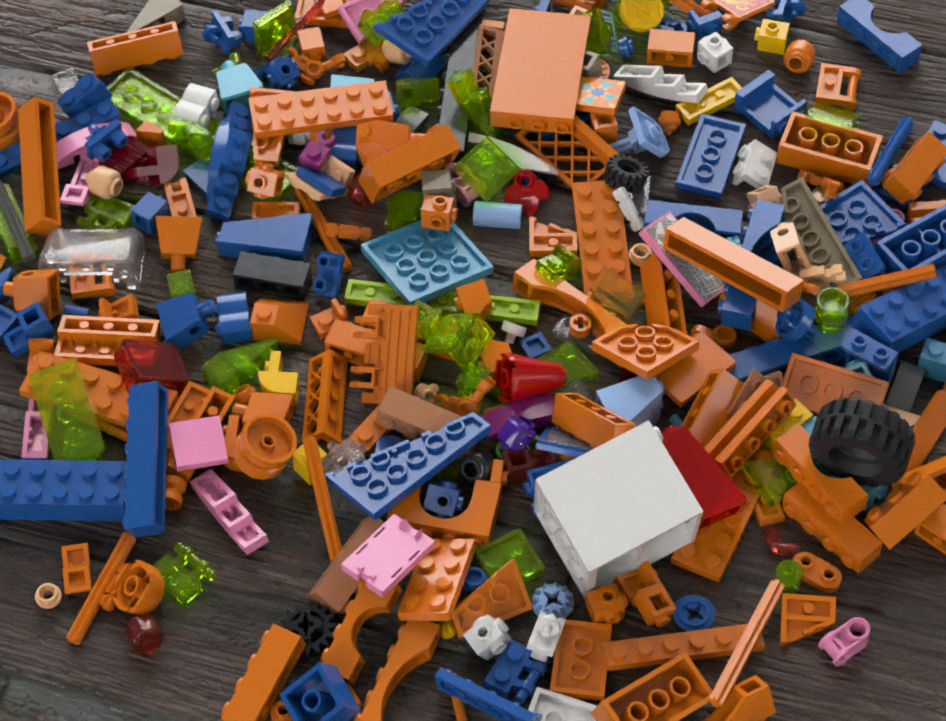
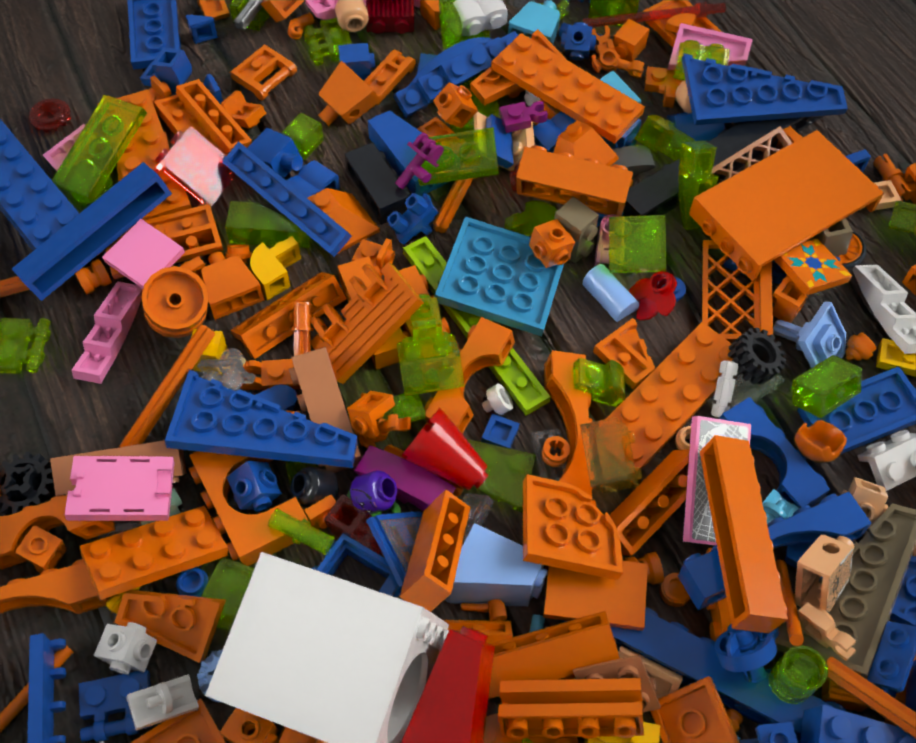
camera: 45 degrees right, 5 degrees up
(33, 287) = (205, 50): orange torso -> none
(67, 218) = (297, 25): none -> orange arm
(95, 253) = (278, 56): clear windscreen -> none
(161, 167) = (404, 38): brick -> none
(241, 330) = (287, 199): none -> blue plate
(297, 237) = (426, 150): none -> magenta arm
(312, 211) = (464, 156): none -> clear neon green tile
(348, 232) = (473, 200): orange axle -> none
(351, 398) = (302, 327): none -> orange axle
(374, 642) = (41, 549): none -> orange bracket
(423, 389) = (362, 378): light nougat plate -> none
(460, 397) = (367, 410): none -> orange bracket
(506, 489) = (301, 531): none -> clear neon green pin
(519, 156) = (683, 258): slope -> none
(602, 32) = (886, 220): clear neon green panel -> none
(626, 46) = (896, 251): blue plate -> none
(680, 157) = (826, 386): none -> clear neon green brick
(710, 190) = (820, 441): none -> orange hair

